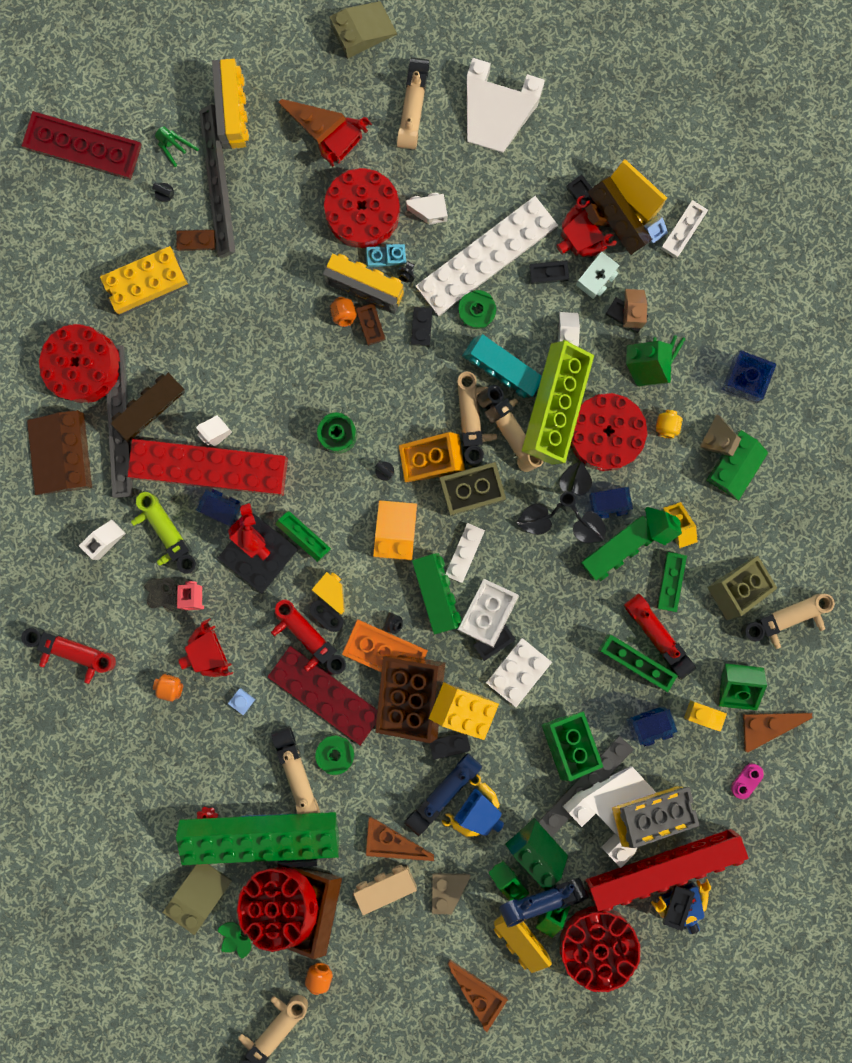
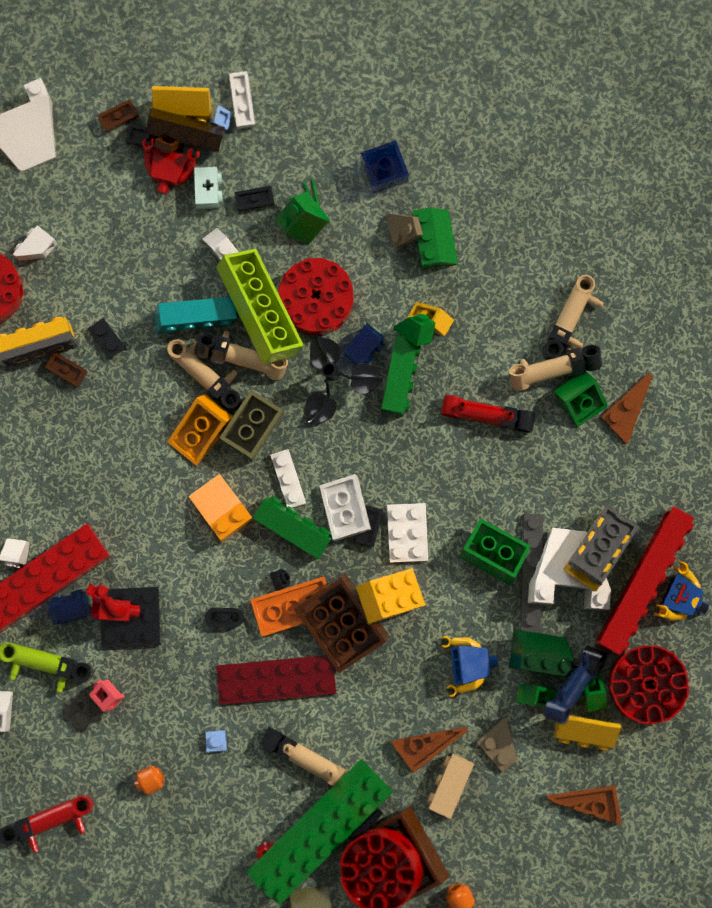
camera: 45 degrees left, 5 degrees down
(205, 653) = (155, 727): red torso -> none
(303, 536) = (153, 573): green plate -> none
(321, 649) = (241, 646): red piece -> none
(326, 747) = (334, 717): green plate -> none
(328, 426) = (102, 477): green brick -> none
(331, 591) = (211, 596): yellow slope -> none
(343, 311) = (36, 378): orange head -> none
(384, 470) = (173, 470): black plate -> none
(385, 256) = (33, 308): medium azure slope -> none
(406, 274) = (60, 308): black plate -> none
(432, 805) = (431, 675): dark blue piece -> none
(450, 745) = (404, 633): black plate -> none
(471, 300) = (128, 285): green plate -> none
(486, 256) = (110, 244): white plate -> none
(549, 272) = (168, 216): black plate -> none
(578, 160) = (118, 116): none -> reddish brown plate
(635, 308) = (256, 188): medium nougat slope -> none
(637, 662) = (488, 447): green brick -> none
(652, 726) = (539, 484): clear blue brick -> none
(669, 424) = (356, 252): yellow head -> none
(671, 582) = (461, 366): green plate -> none
(678, 907) = (677, 600): black plate -> none
(705, 716) = (573, 442): yellow slope -> none
(742, 588) = (517, 325): olive slope -> none
(746, 780) = (647, 464): dark pink plate -> none
(761, 655) = (573, 362): none -> tan piece

